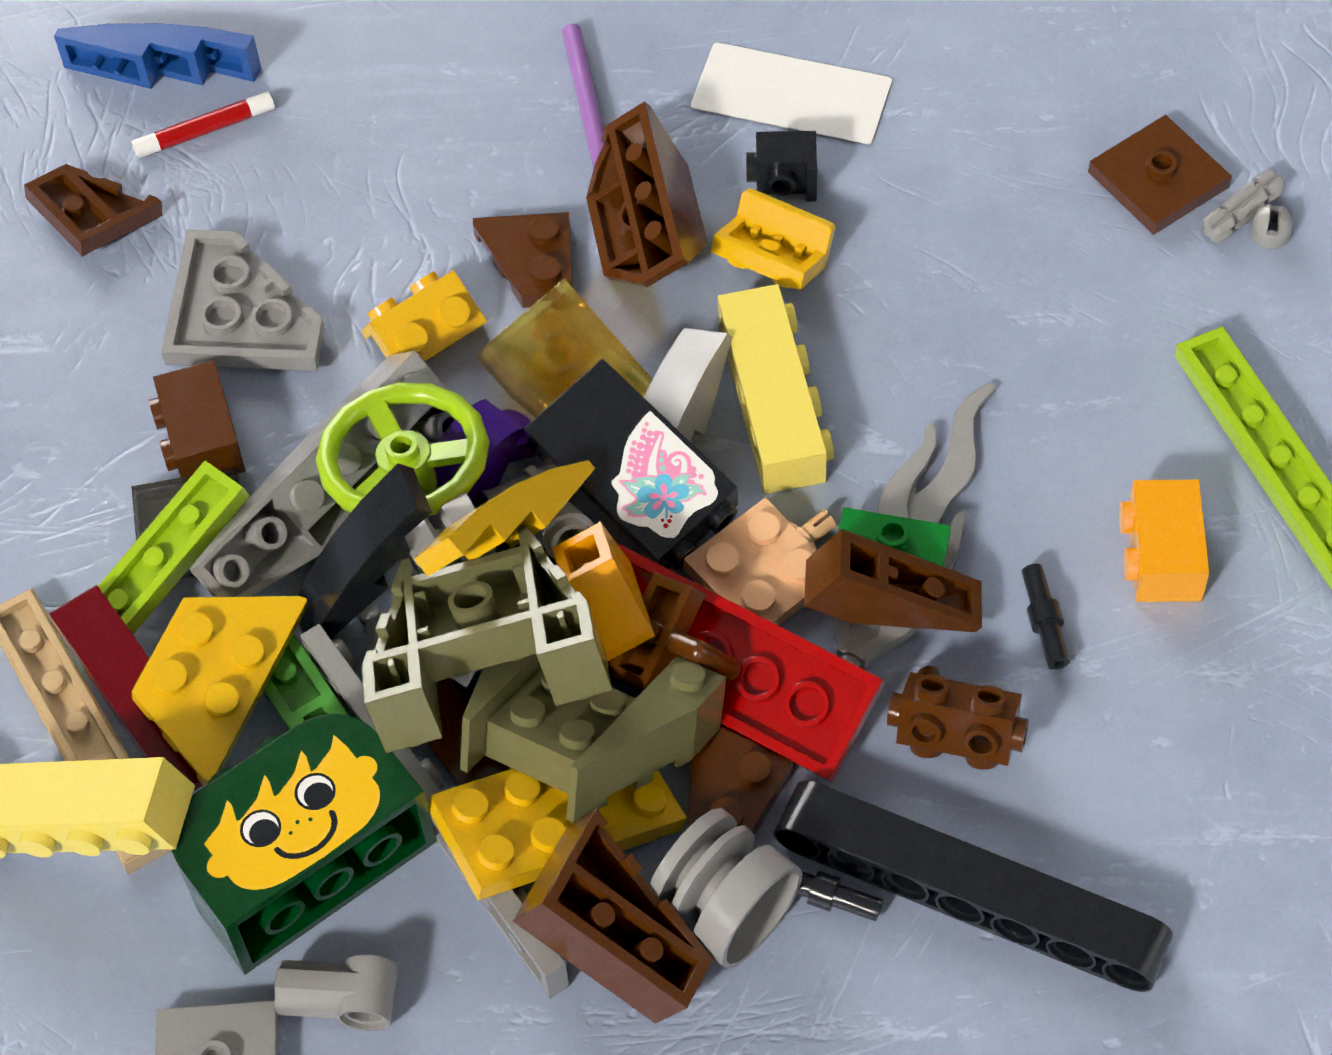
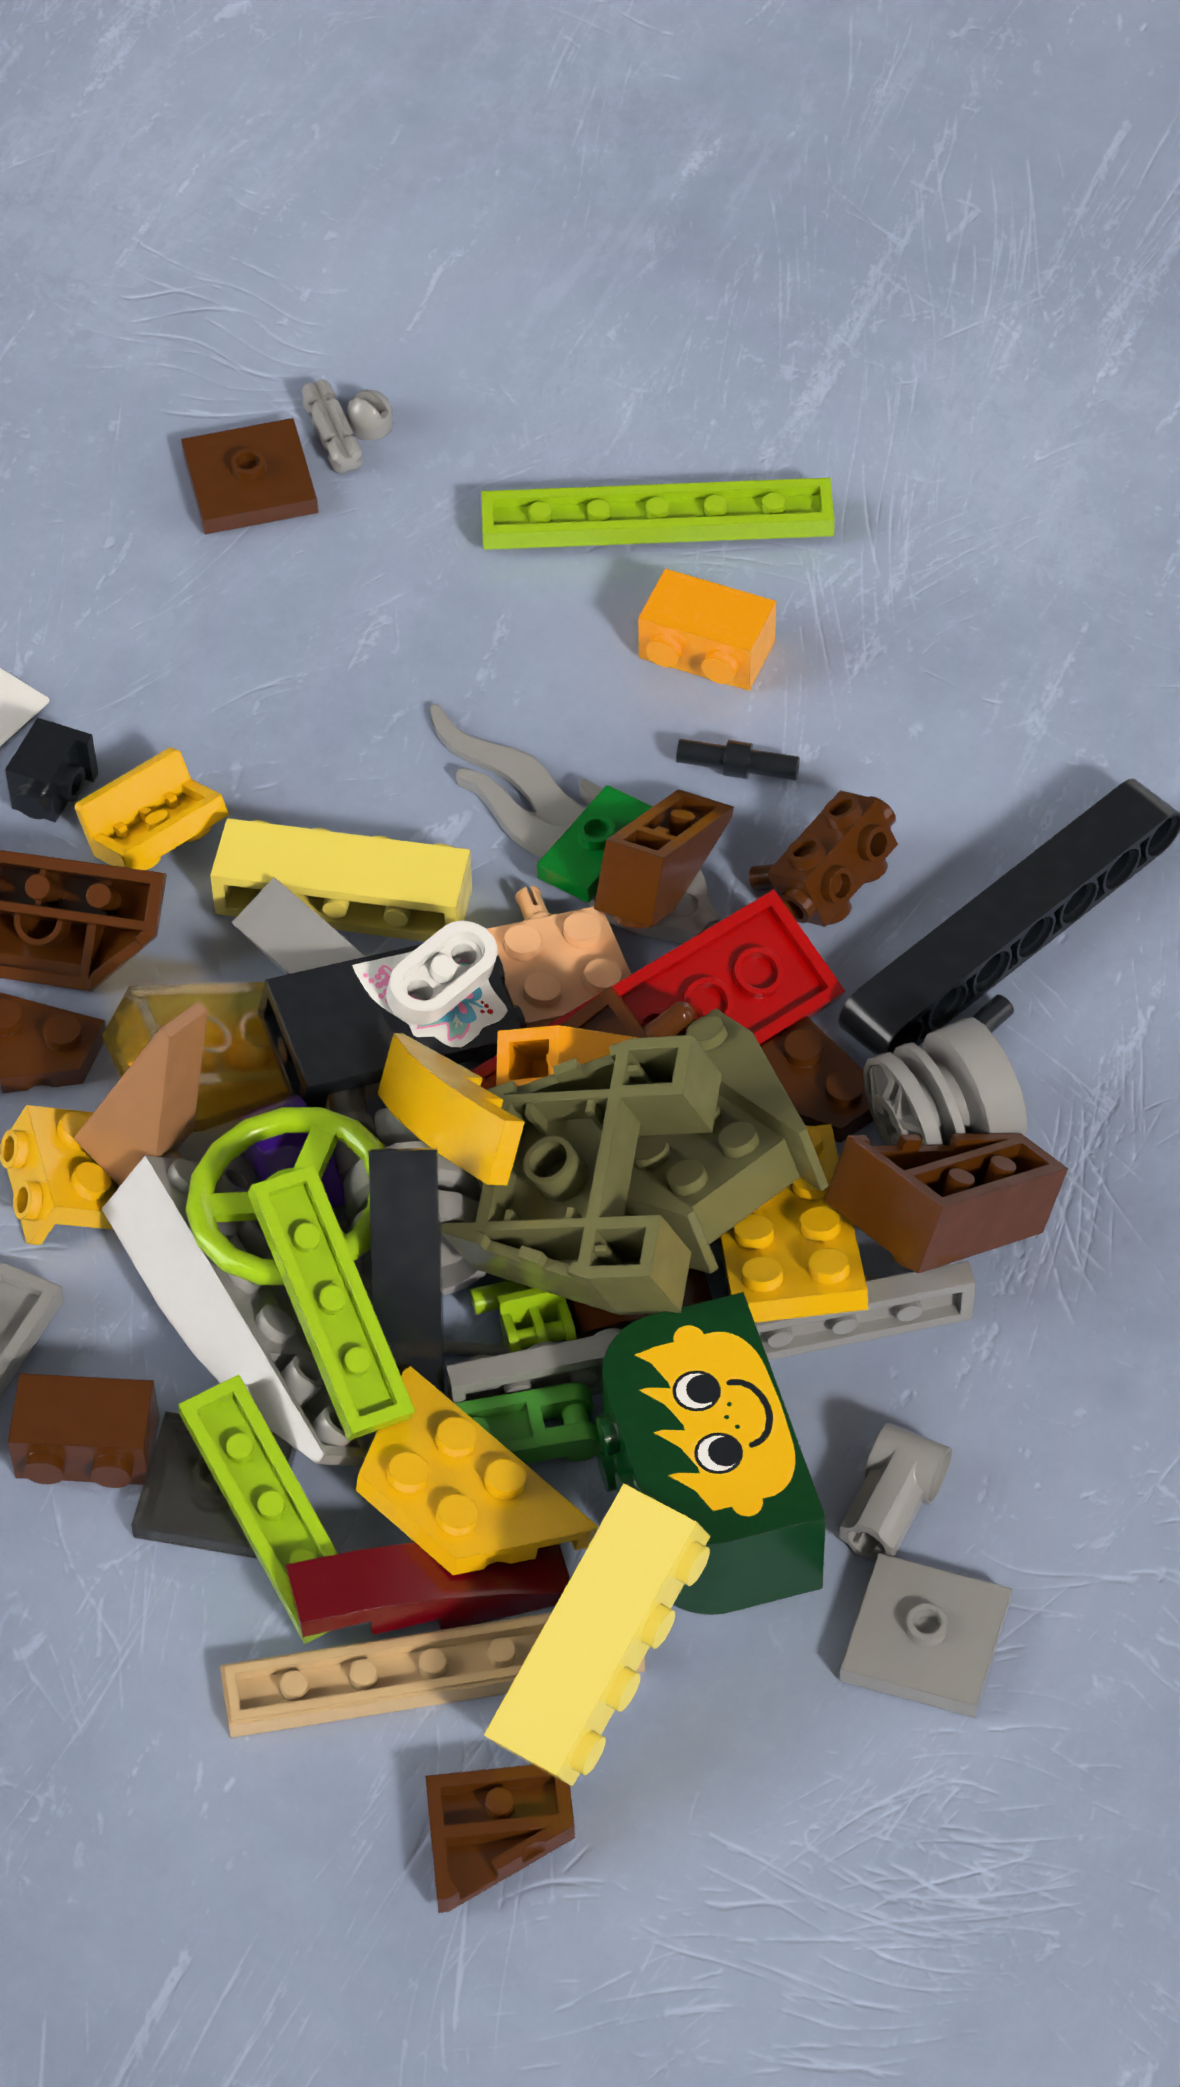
camera: 70 degrees left, 5 degrees down
(300, 510) = (331, 1302): none -> lime plate
(462, 336) = (153, 1102): none -> medium nougat slope
(668, 470) = (437, 976): none -> white plate

